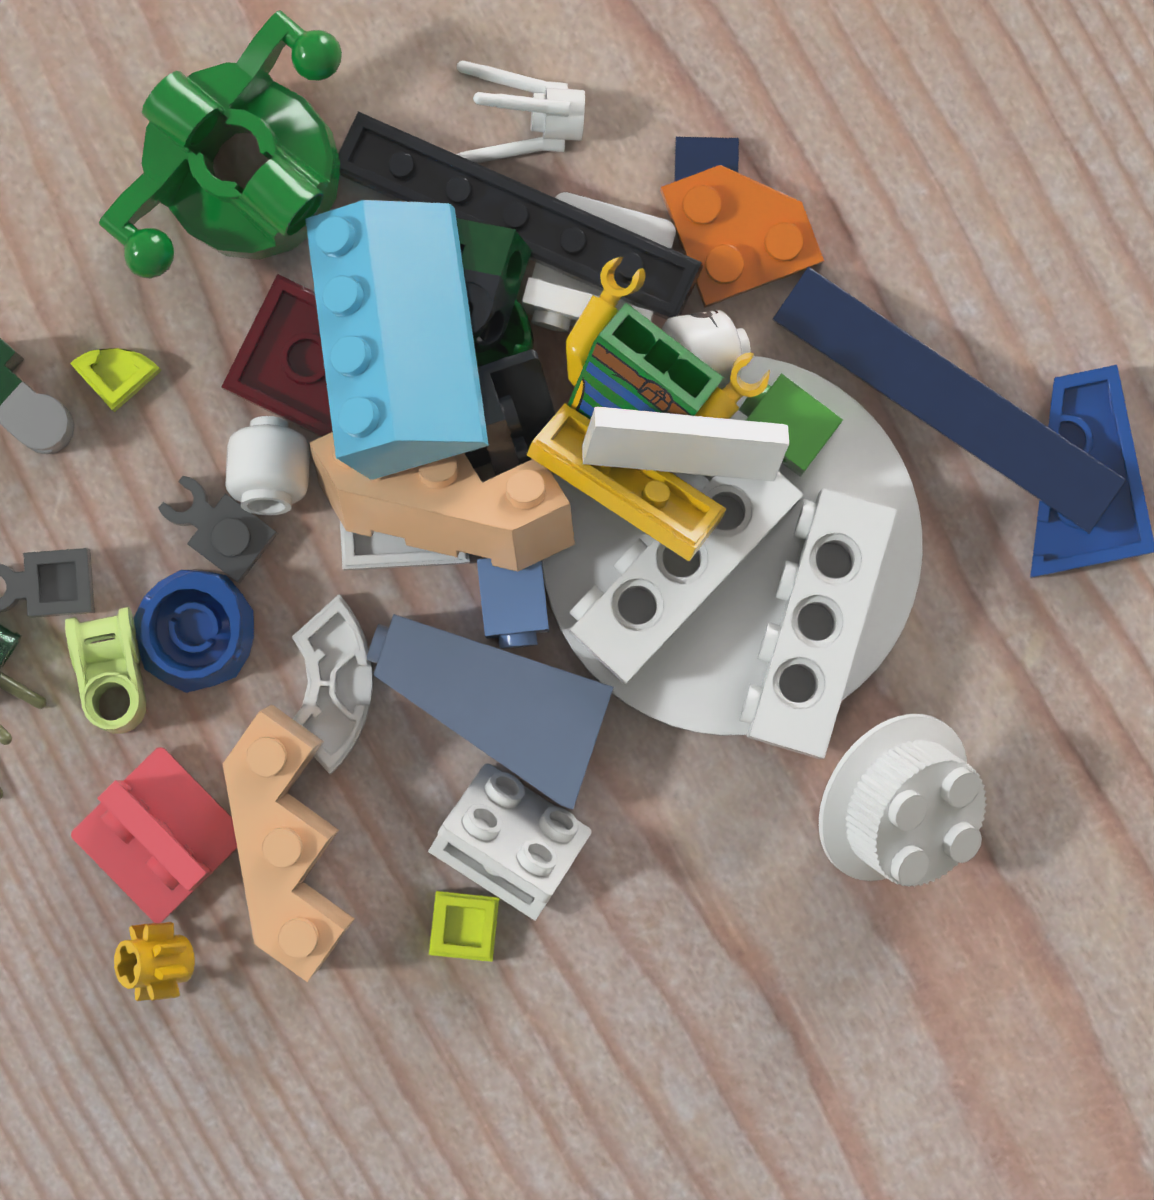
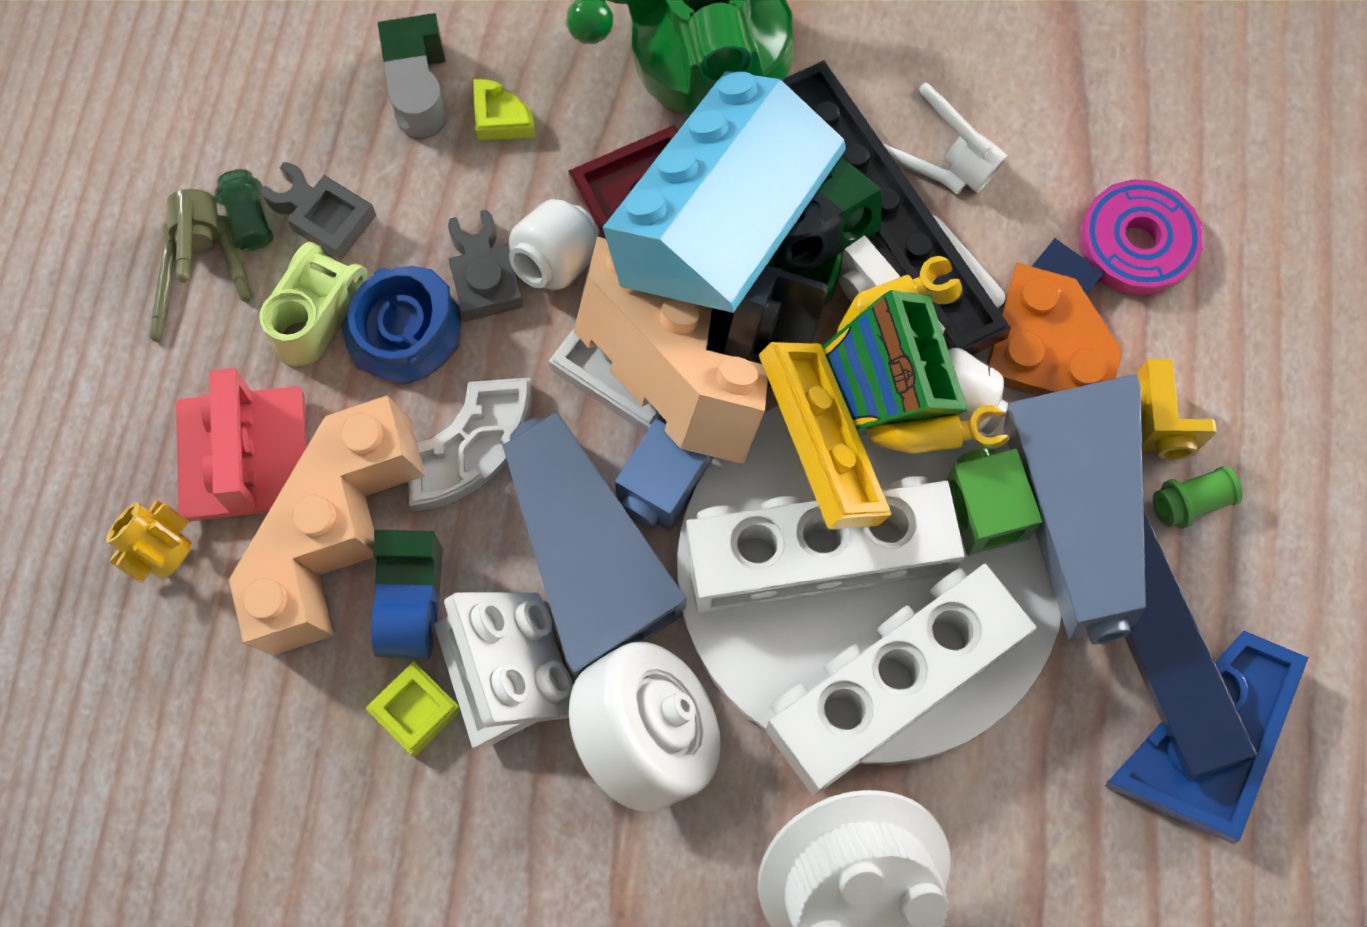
camera: 40 degrees right, 15 degrees down
(389, 847) = (405, 593): none -> leg
(655, 805) = (644, 727): none -> white wheel
(685, 444) = (897, 432): white tile -> none
(753, 41) = (1161, 213): none -> dark pink tile
(855, 362) = (1088, 485): none -> sand blue slope
(856, 234) = (1160, 419): none -> yellow bracket
(945, 286) = (1182, 502): none -> bright green pin

